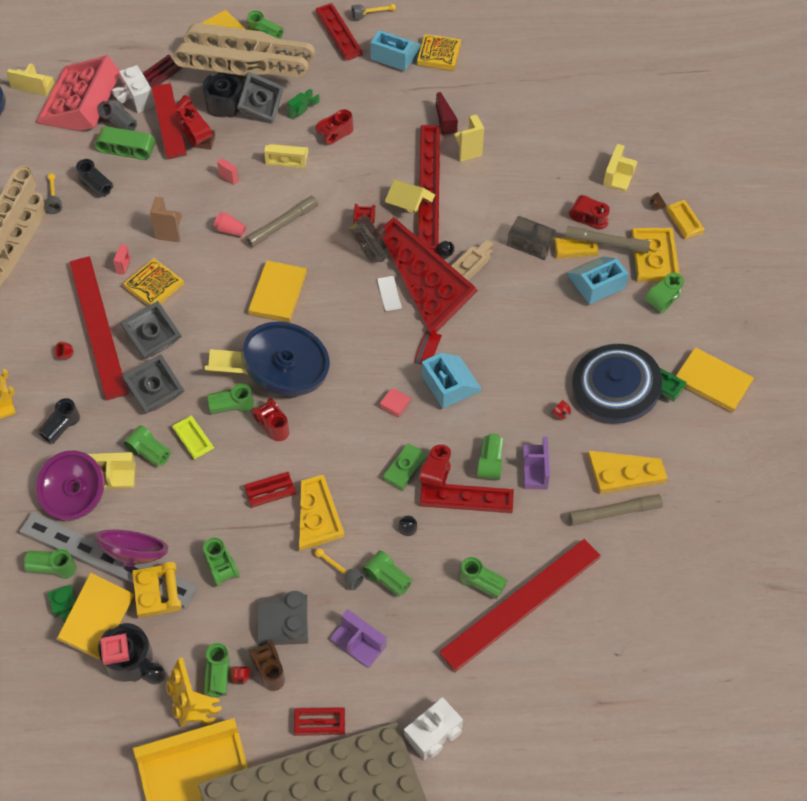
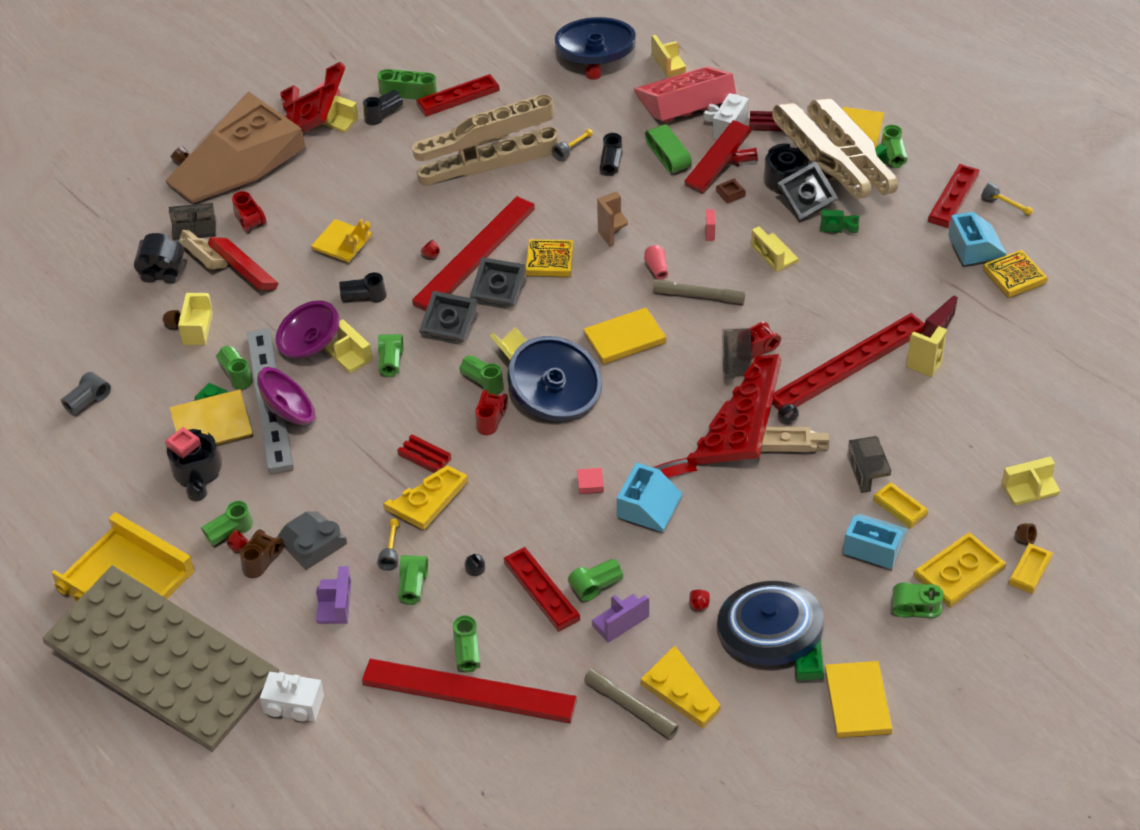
camera: 55 degrees right, 10 degrees down
(117, 115) = (690, 122): dark grey piece -> none
(122, 259) = (550, 222): coral tile -> none
(148, 590) = (260, 437): yellow plate -> none
(189, 705) = (179, 523): yellow plate -> none
(193, 125) = (725, 172): red piece -> none
(193, 437) = (426, 376): neon yellow tile -> none
(220, 565) = (325, 463): bright green piece -> none
(313, 731) = (250, 633): red tile -> none
(335, 126) = (841, 259): red piece -> none
(389, 293) = (703, 408): white sticker -> none
(405, 466) = (531, 527): bright green plate -> none
(407, 196) = (814, 350): light yellow panel -> none
(437, 467) = (543, 545): red piece -> none
(588, 211) = (949, 489): red piece -> none
(630, 243) = (943, 539): dark tan piece -> none

